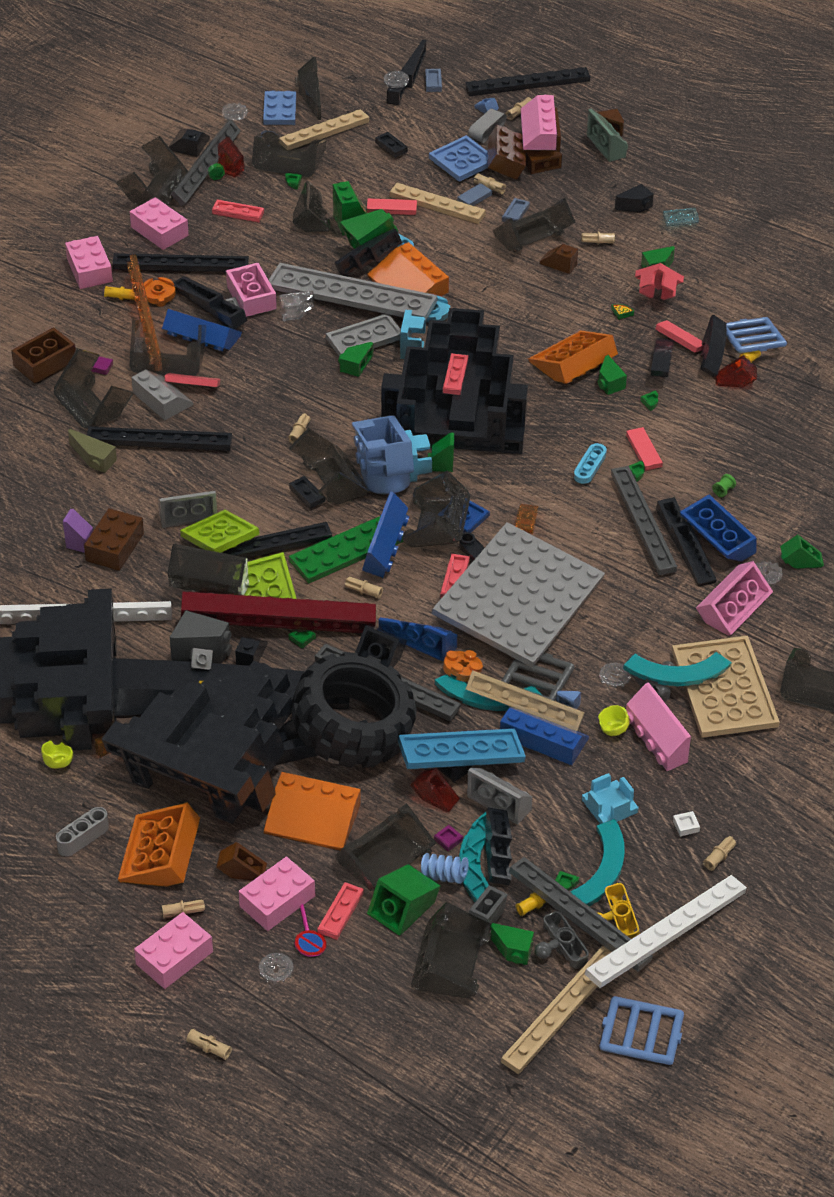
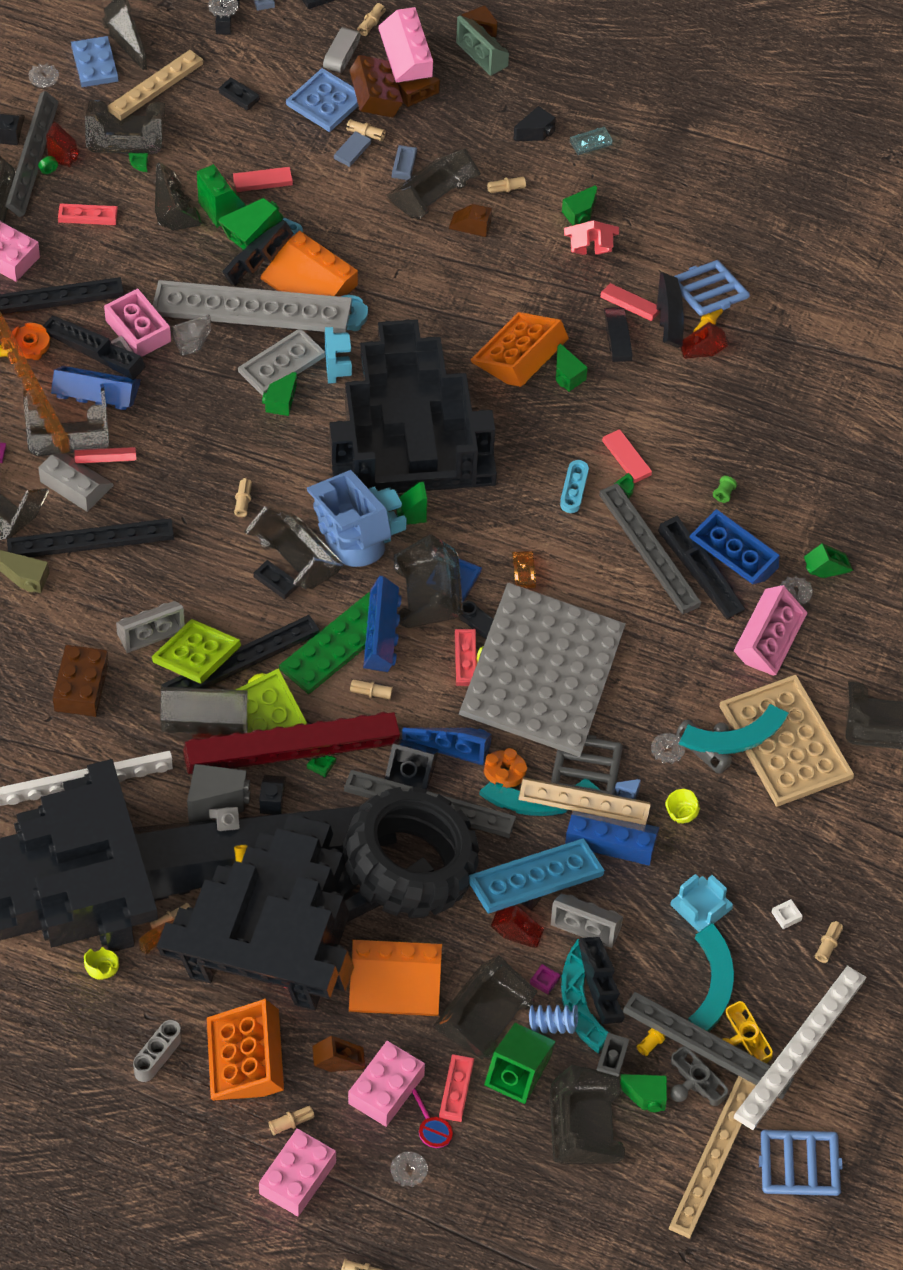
camera: 15 degrees left, 10 degrees up
(76, 531) = (39, 681): medium lavender slope -> none
(438, 203) = (313, 166): tan plate -> none
(455, 374) = (401, 401): coral tile -> none
(487, 104) = (333, 20): medium blue slope -> none
(567, 880) = (680, 1005): green tile -> none
(622, 311) = (557, 278): tile -> none
(650, 400) = (617, 391): green tile -> none
(659, 728) = (732, 807): bright pink slope -> none

